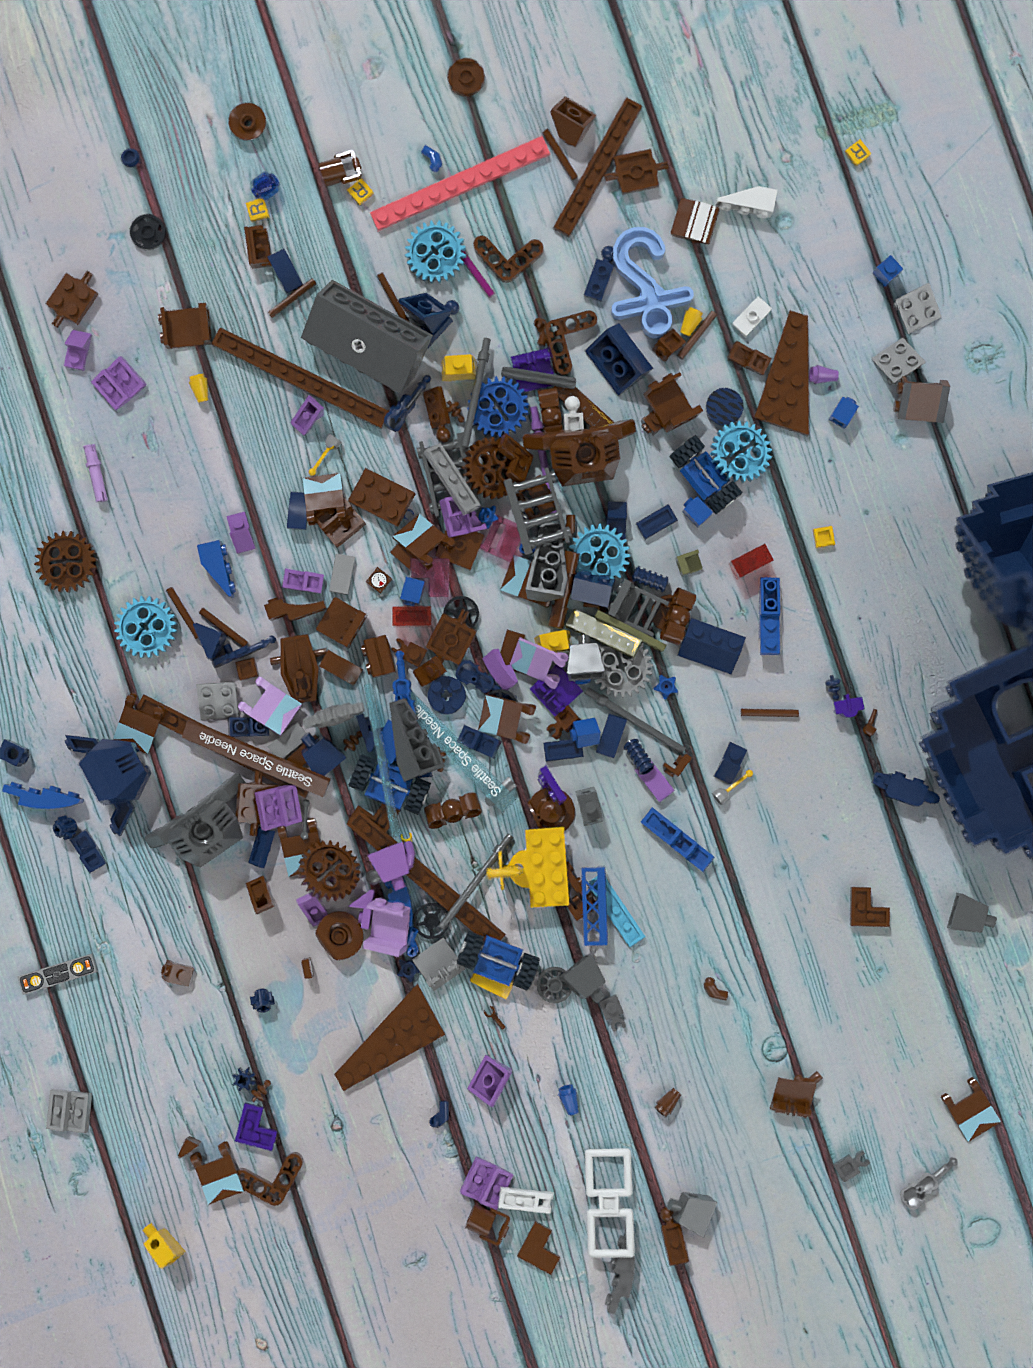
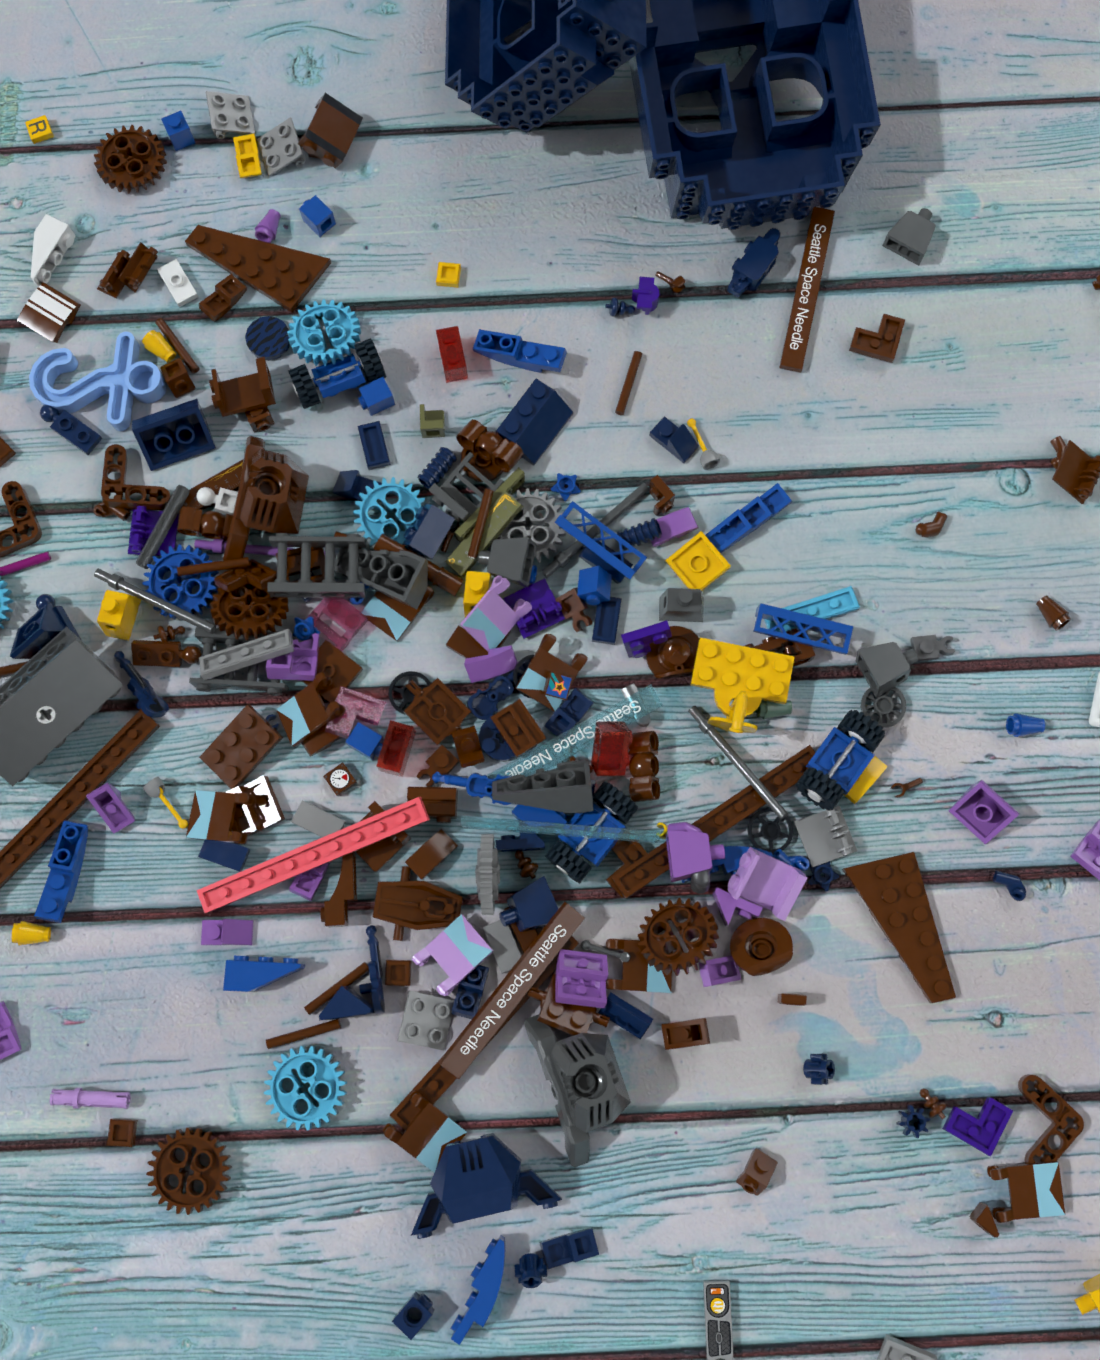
camera: 75 degrees left, 10 degrees down
(78, 504) = (122, 1132): none -> reddish brown tile
(250, 396) = (64, 872): none -> blue slope
(313, 580) = (313, 854): none -> coral plate
(453, 705) = (518, 728): none -> reddish brown plate
(457, 781) = (611, 748): none -> clear red brick
(497, 726) = (557, 685): none -> tile
(515, 429) = (213, 566): none -> reddish brown bar
(524, 897) = (770, 709): none -> sand green cone
(610, 628) = (480, 523): none -> reddish brown bar
(615, 725) = (591, 543): none -> blue fence
(629, 810) = (698, 563): none -> yellow tile
(744, 265) = (110, 283): none -> reddish brown hinge
(751, 279) = (138, 266): none -> reddish brown hinge
(834, 238) = (127, 152): none -> reddish brown gear
(883, 335) = (247, 156): none -> yellow slope
(892, 839) = (807, 289): none -> reddish brown tile

